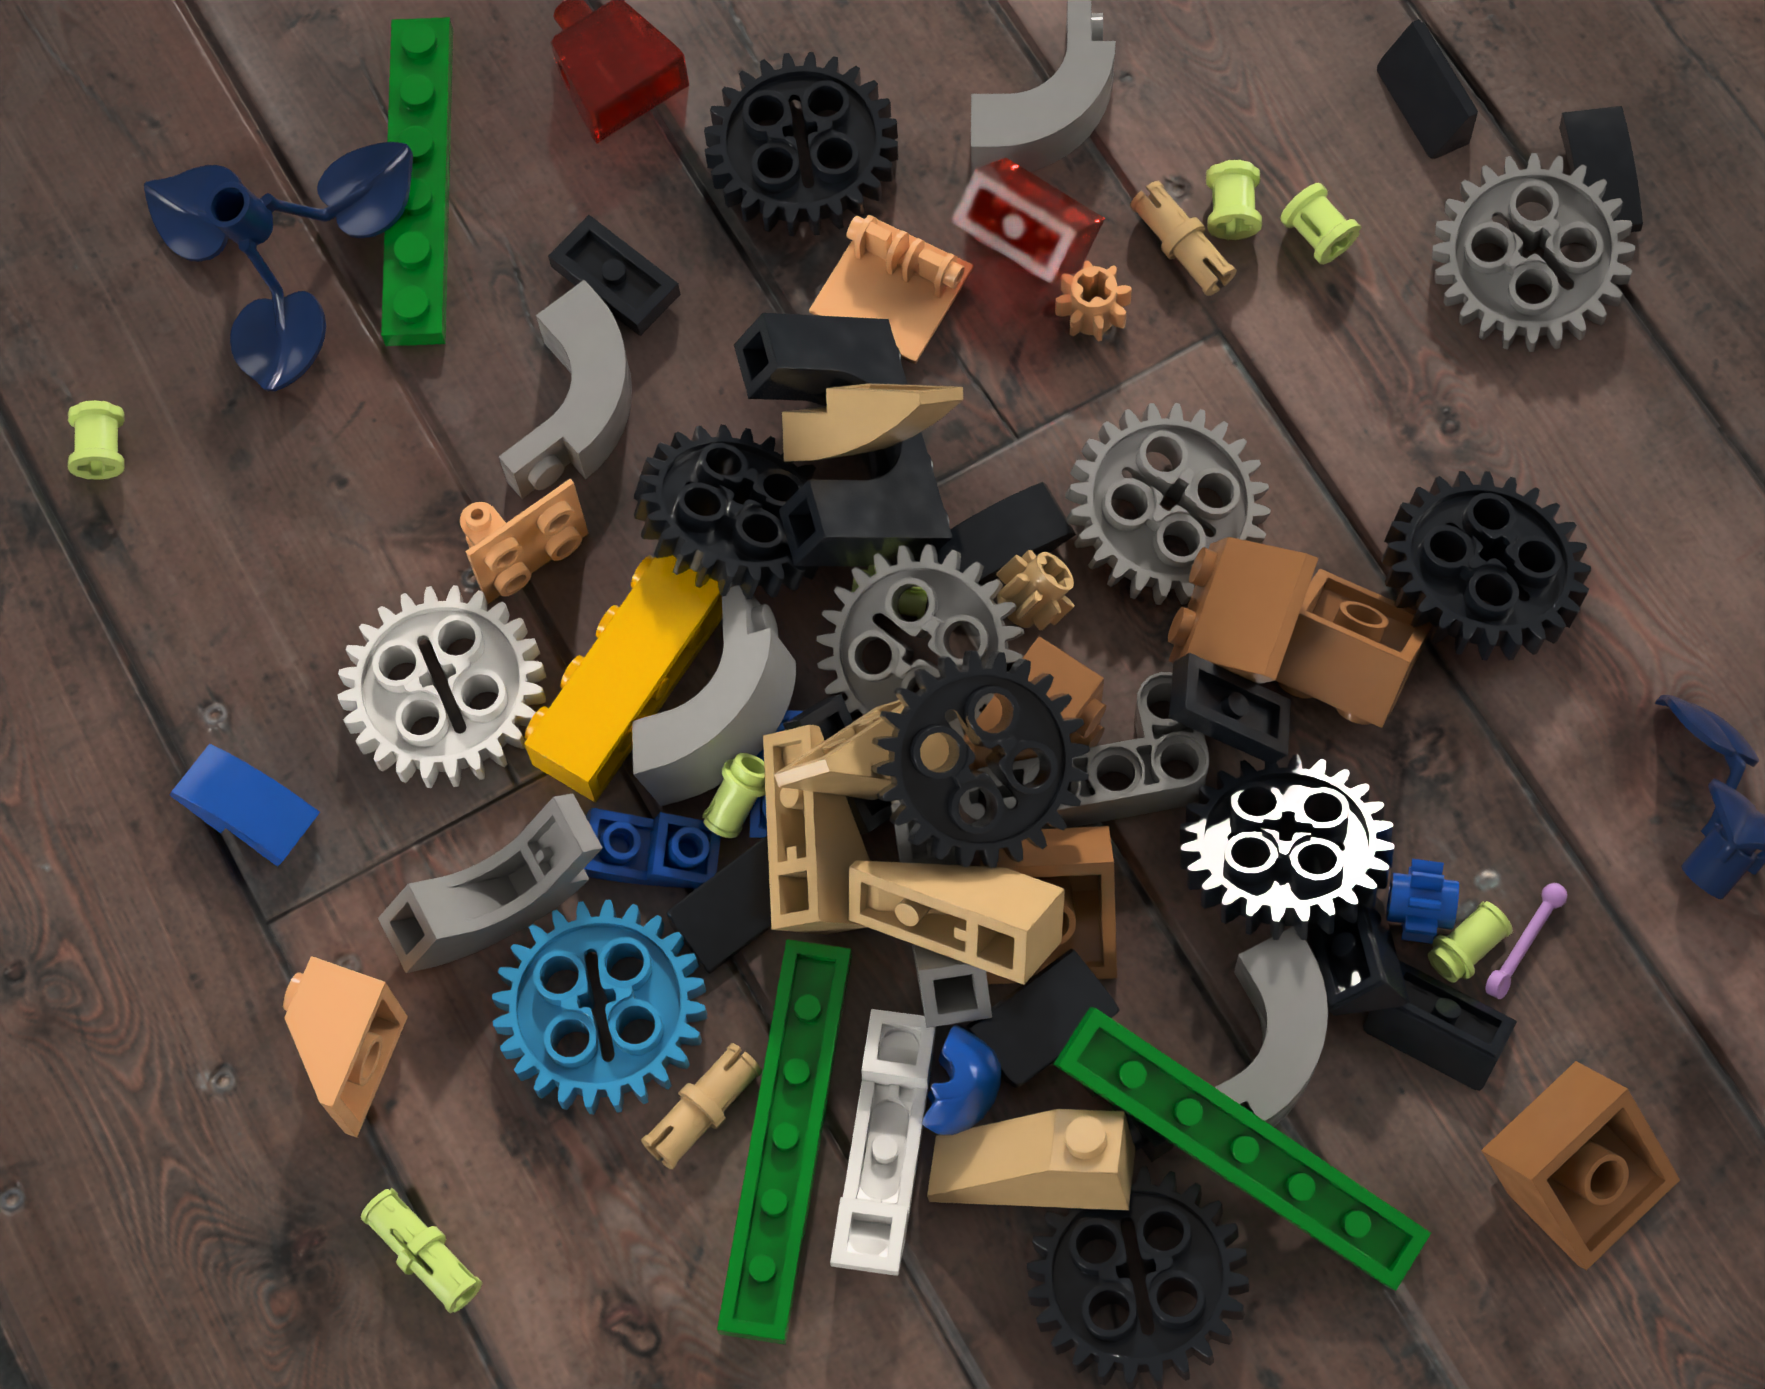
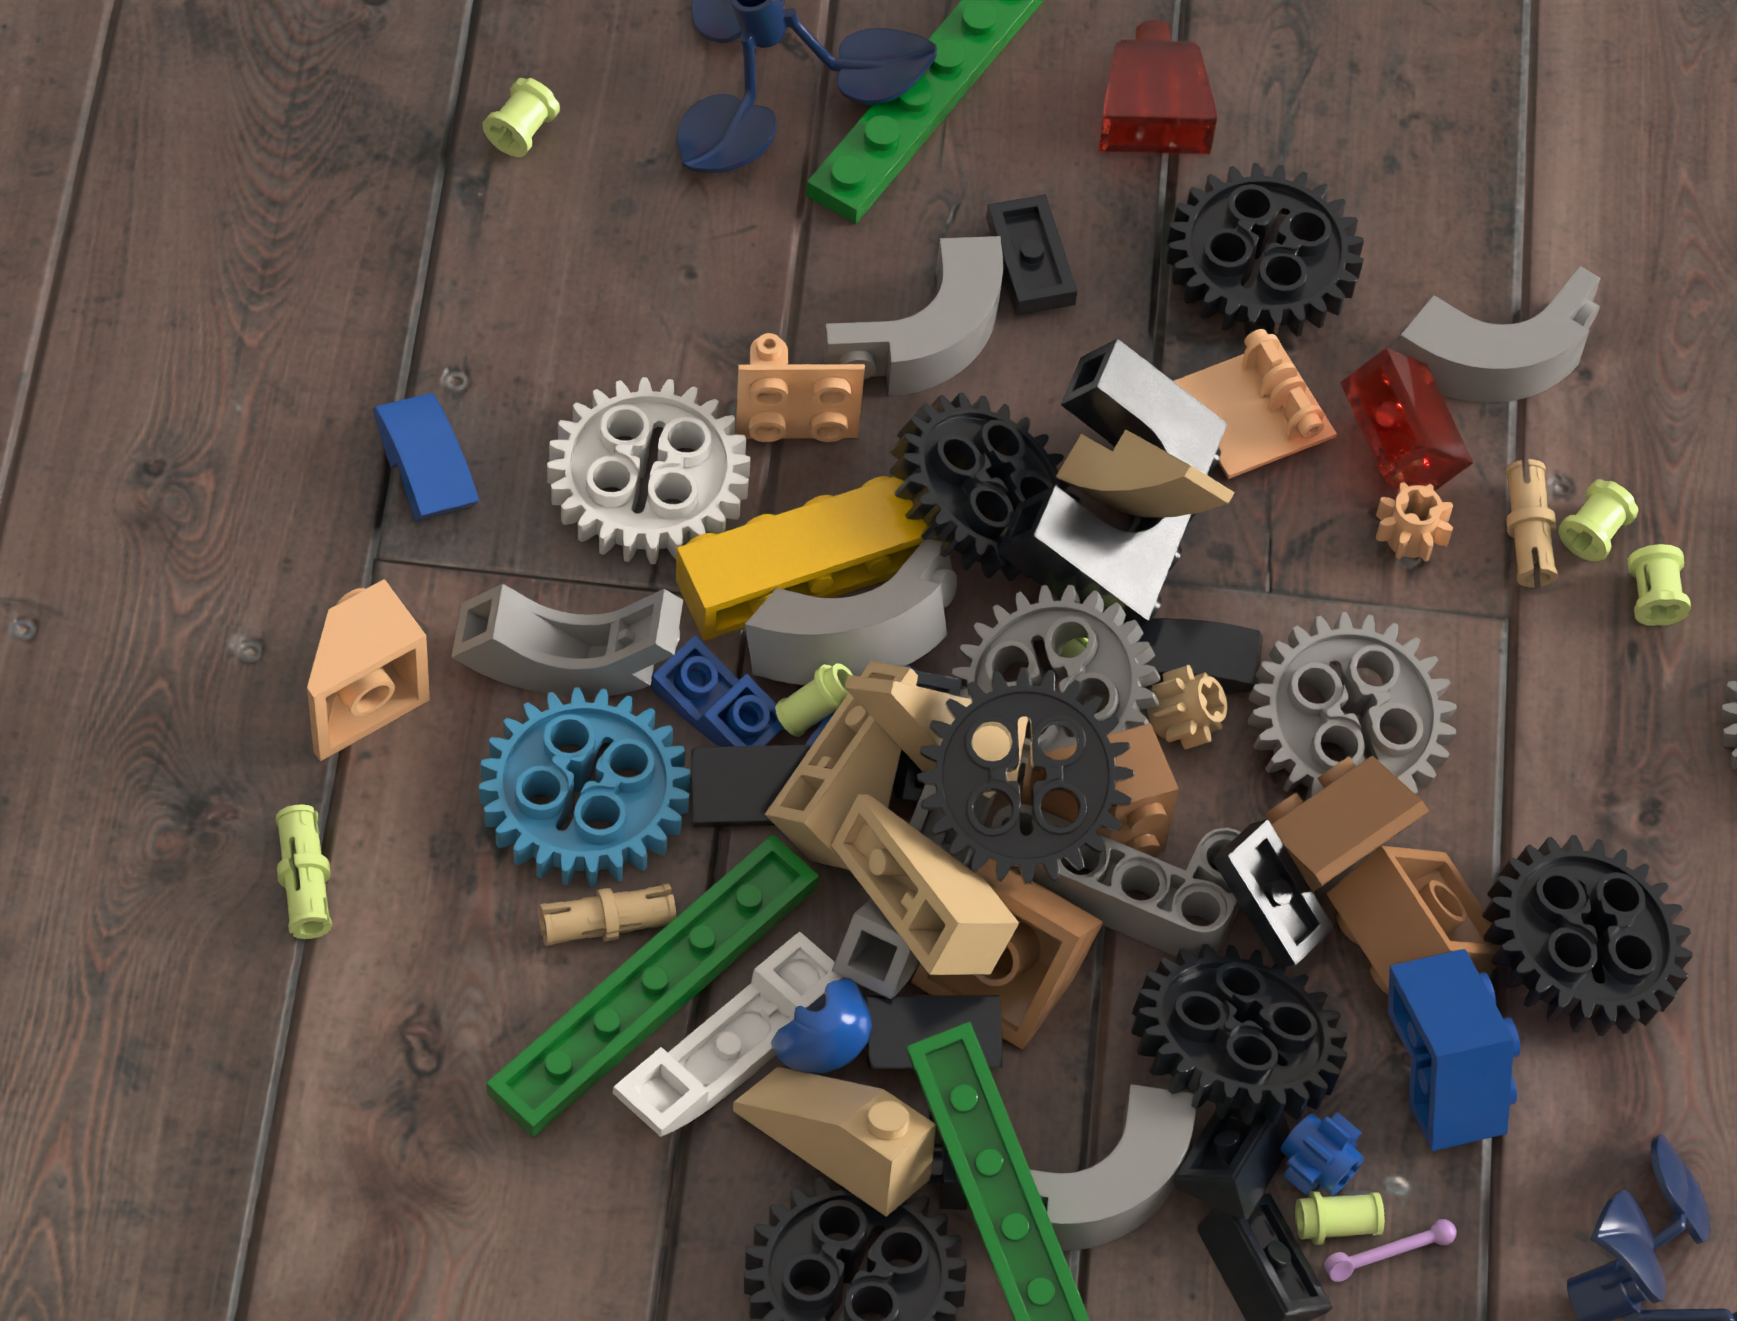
camera: 25 degrees right, 10 degrees down
(1467, 735) = (1456, 1048): none -> blue brick

